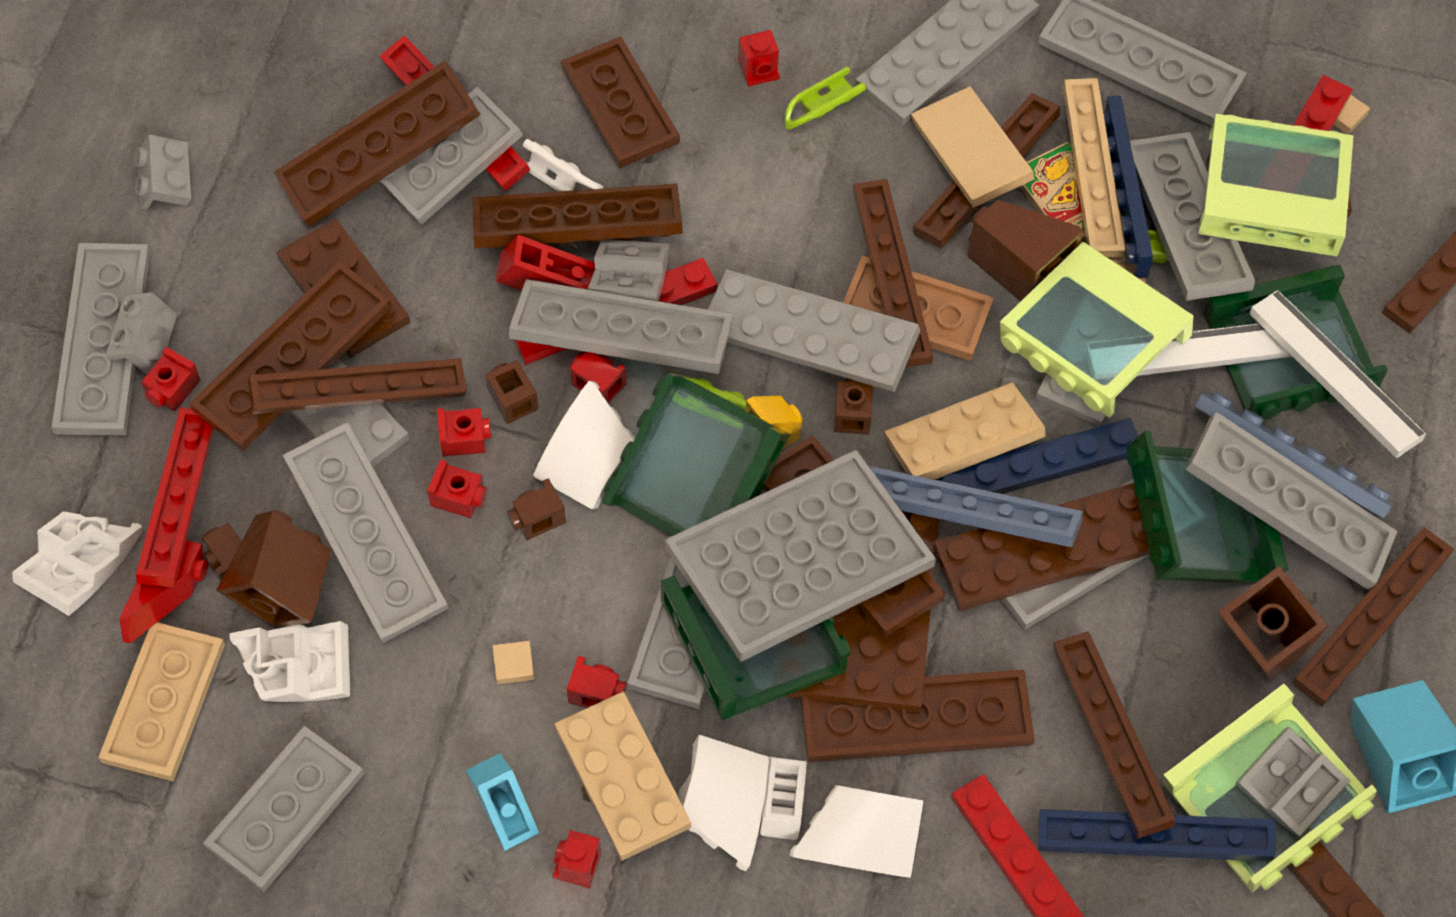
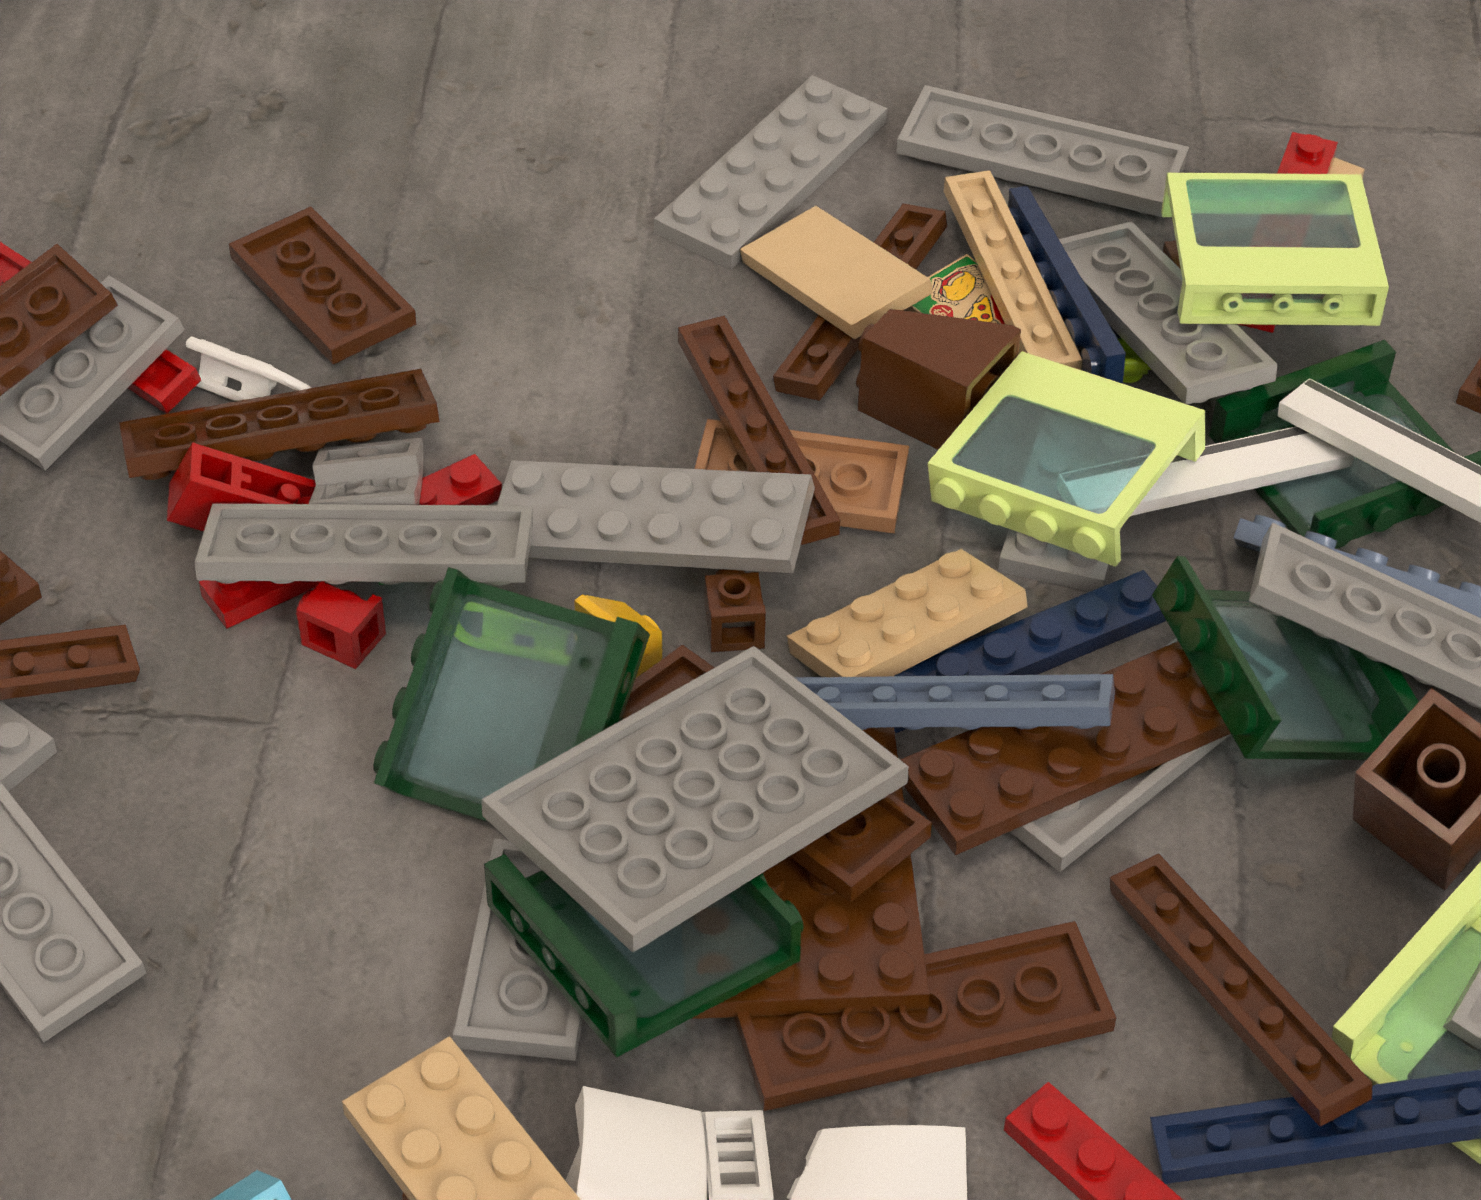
camera: 10 degrees left, 15 degrees down
(457, 501) = (138, 804): red brick -> none
(462, 431) = (140, 723): red brick -> none
(512, 391) = (211, 658): reddish brown brick -> none
(513, 662) = (262, 1037): tan tile -> none
(537, 511) = (272, 814): reddish brown brick -> none
(585, 448) = (333, 717): white slope -> none
(592, 684) = (392, 1040): red brick -> none
(759, 58) = (512, 208): red brick -> none
(817, 105) = (605, 257): lime piece -> none

